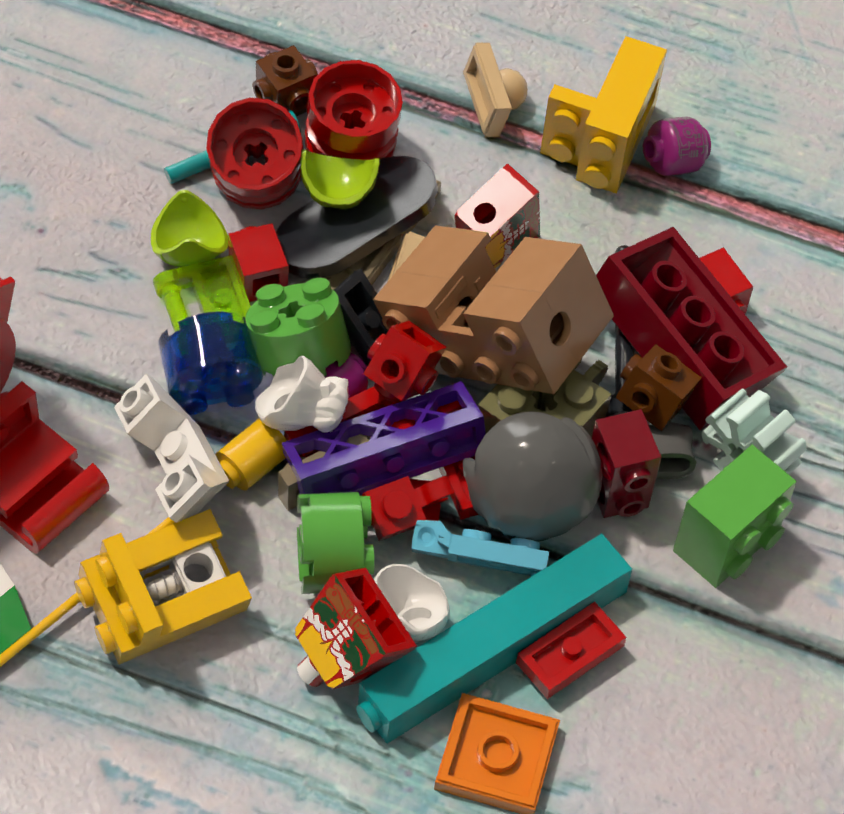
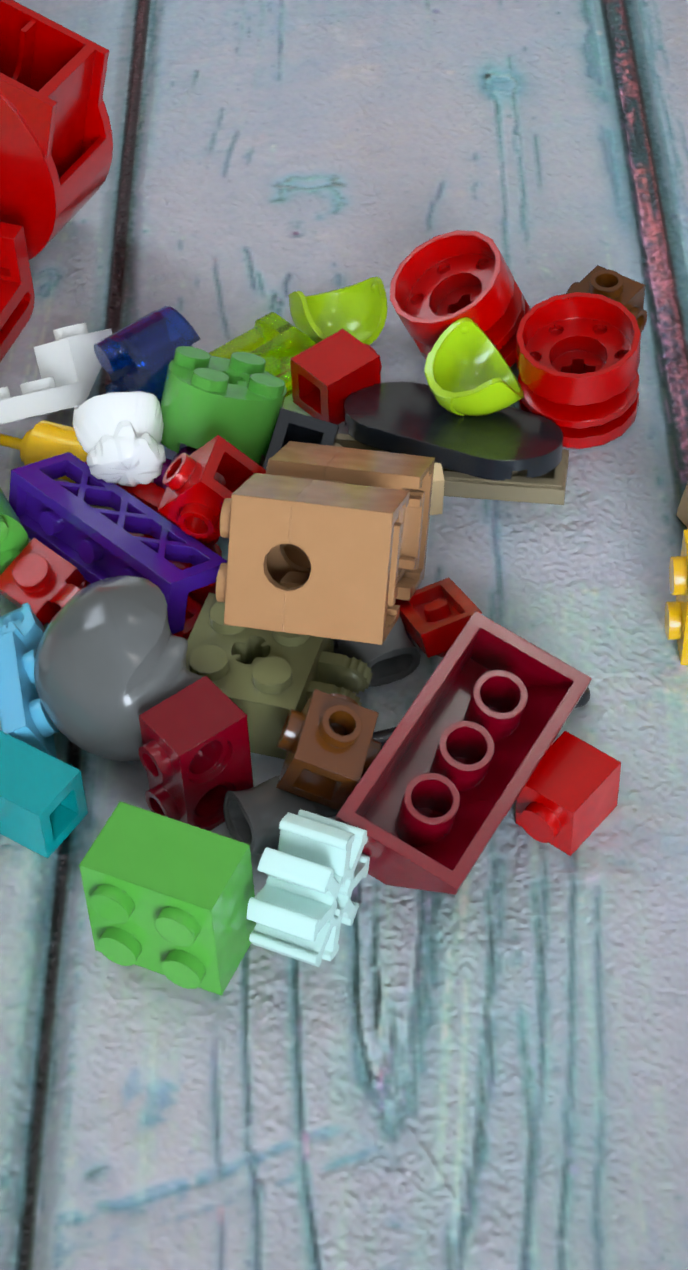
camera: 75 degrees right, 10 degrees down
(506, 210) = (516, 540): torso -> none

